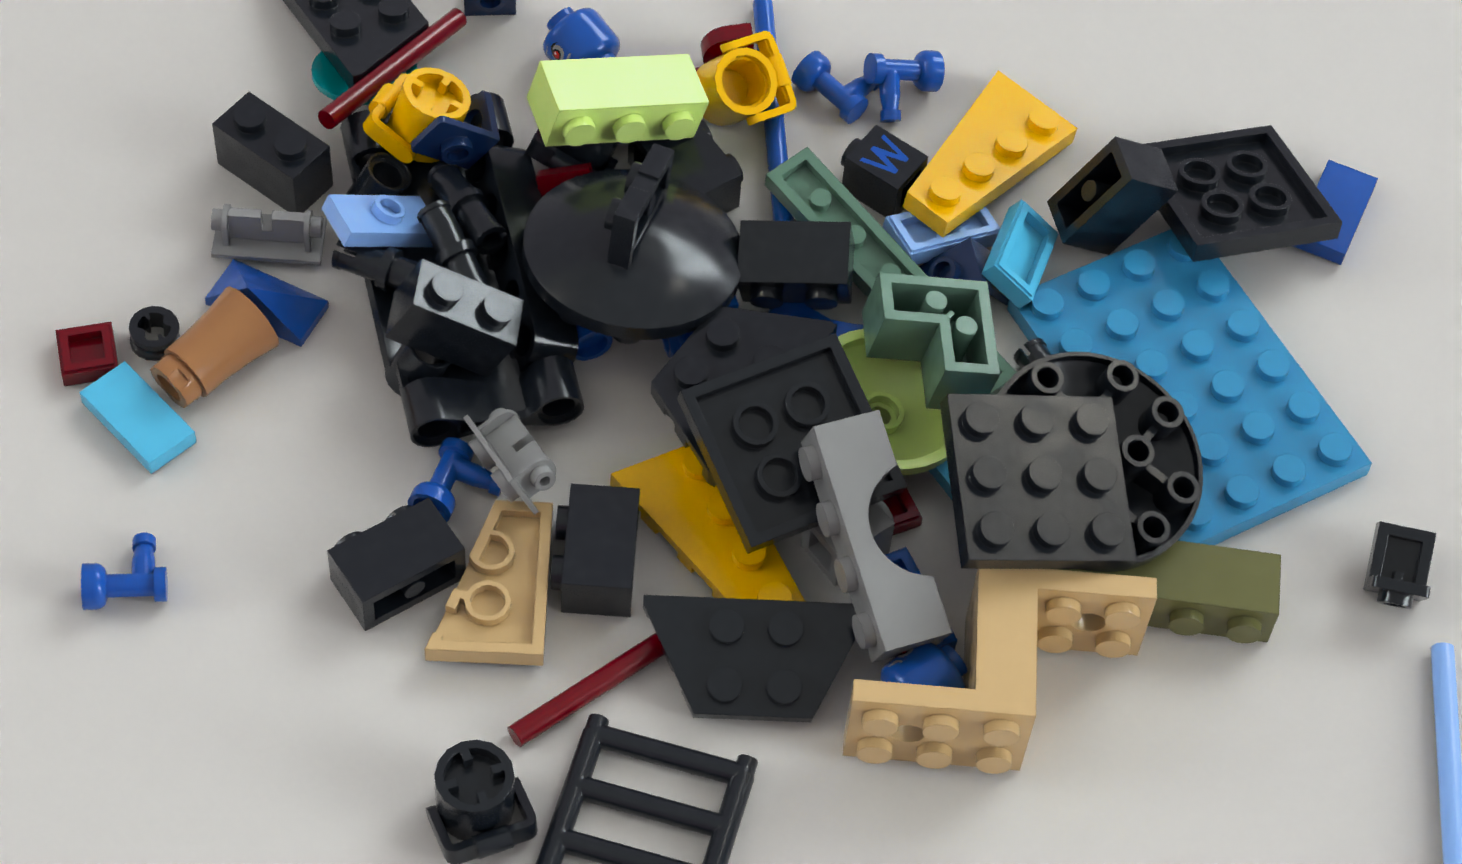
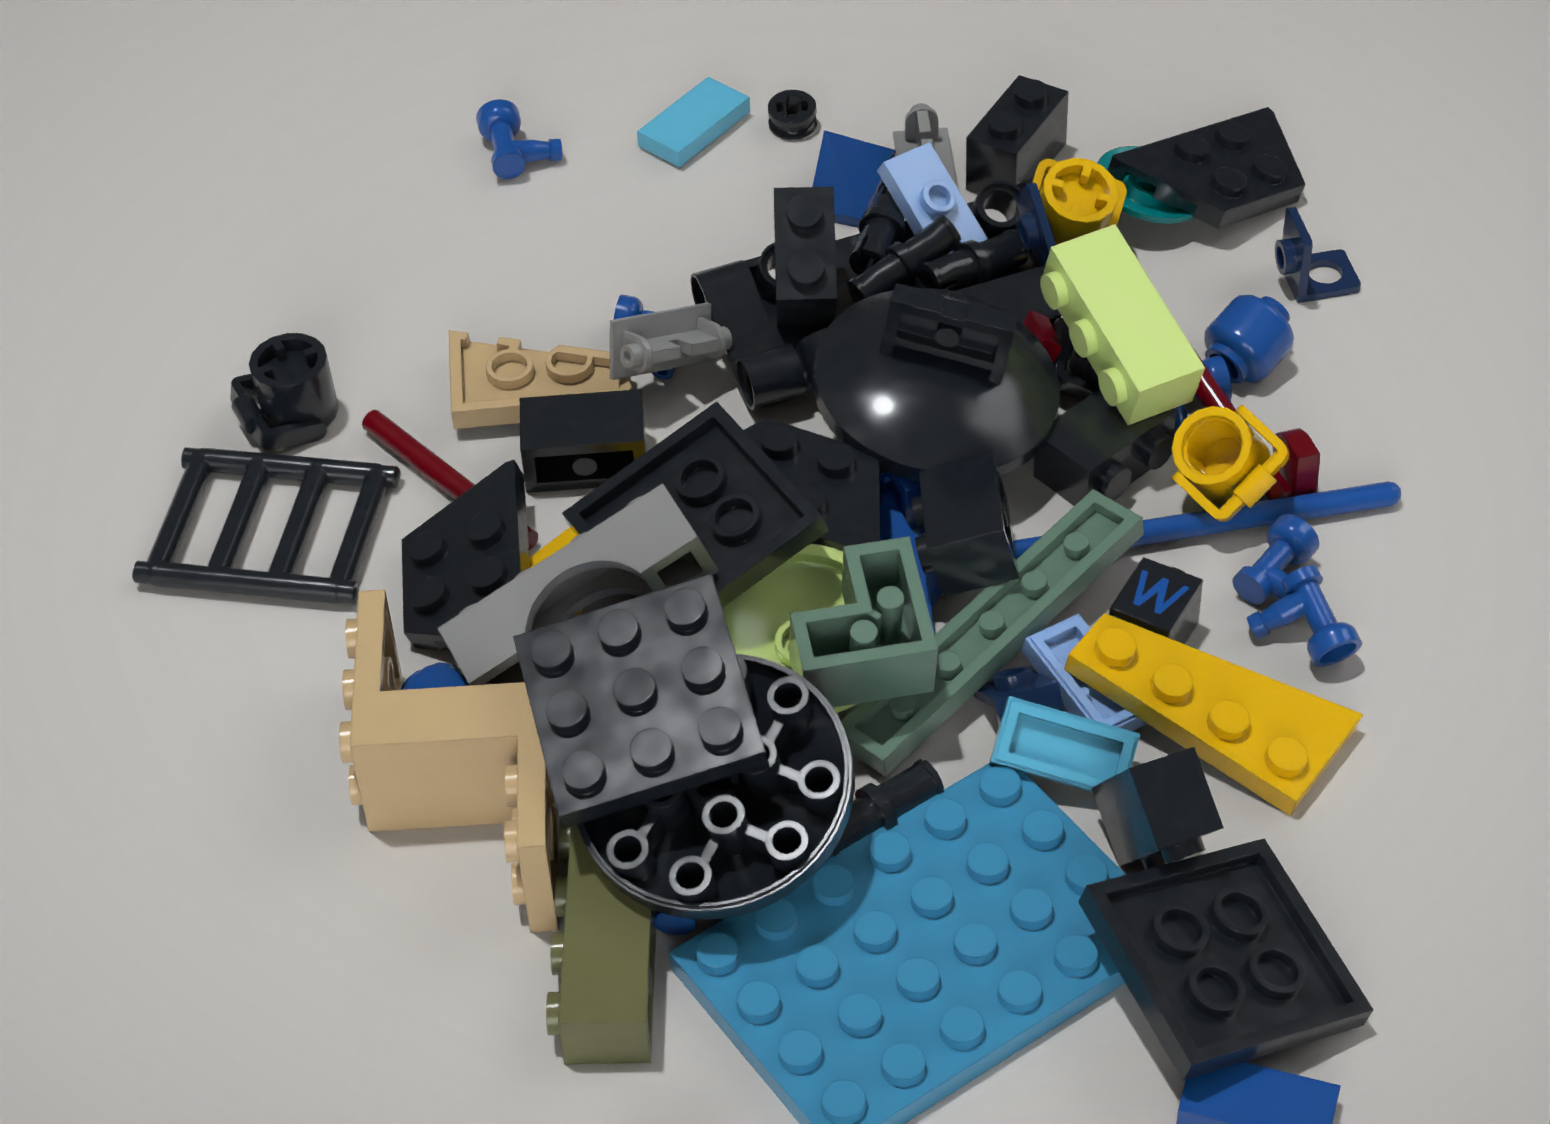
camera: 90 degrees right, 10 degrees down
(86, 352) = (759, 78): dark red tile -> none
(214, 348) = (768, 141): medium nougat plant -> none
(391, 68) = (1160, 197): dark red bar -> none
(396, 563) = (546, 298): black brick -> none

